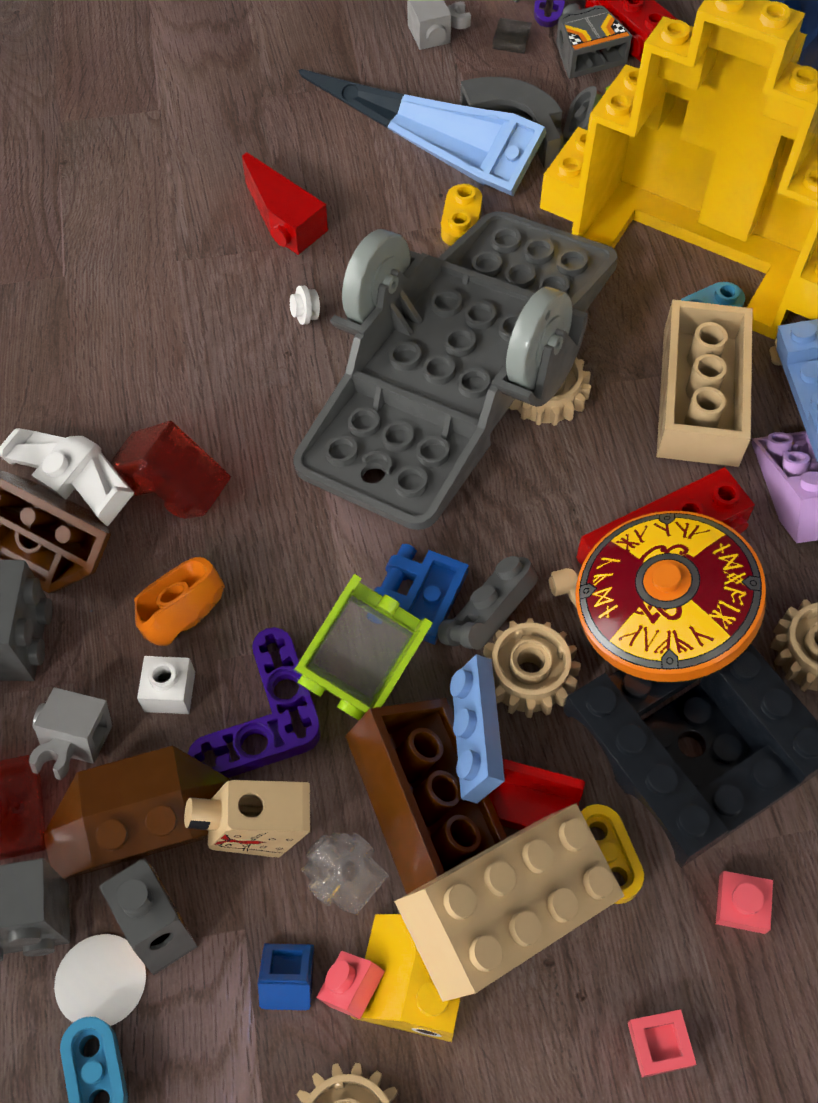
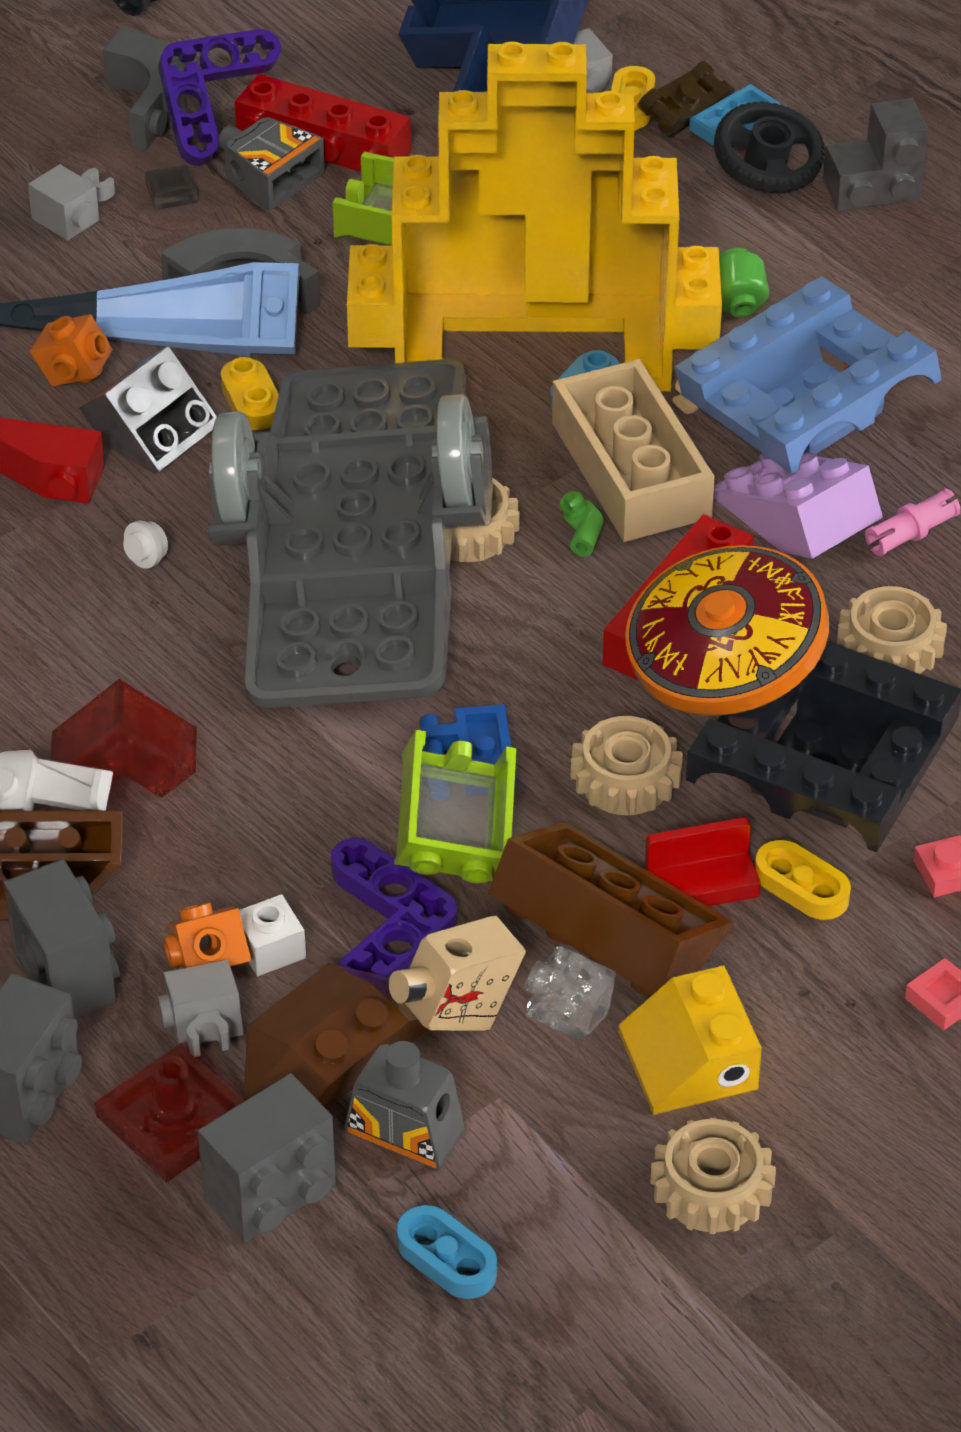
camera: 30 degrees left, 15 degrees down
(100, 979) = (382, 1191): white sticker -> none
(109, 670) = (223, 931): none -> orange brick
(177, 600) = (226, 855): orange piece -> none
(286, 976) = (571, 1109): blue slope -> none
(350, 984) = (637, 1077): coral plate -> none
(355, 132) = (71, 350): none -> orange brick
(379, 199) = (151, 412): none -> flat silver slope
(476, 729) = (616, 823): medium blue plate -> none
(490, 604) = (550, 728): dark grey plate -> none
(508, 903) = (744, 922): tan brick -> none
(564, 582) = (612, 683): tan hand -> none
(580, 110) = (322, 242): dark grey plate -> none
(637, 426) = (584, 520): none -> bright green arm

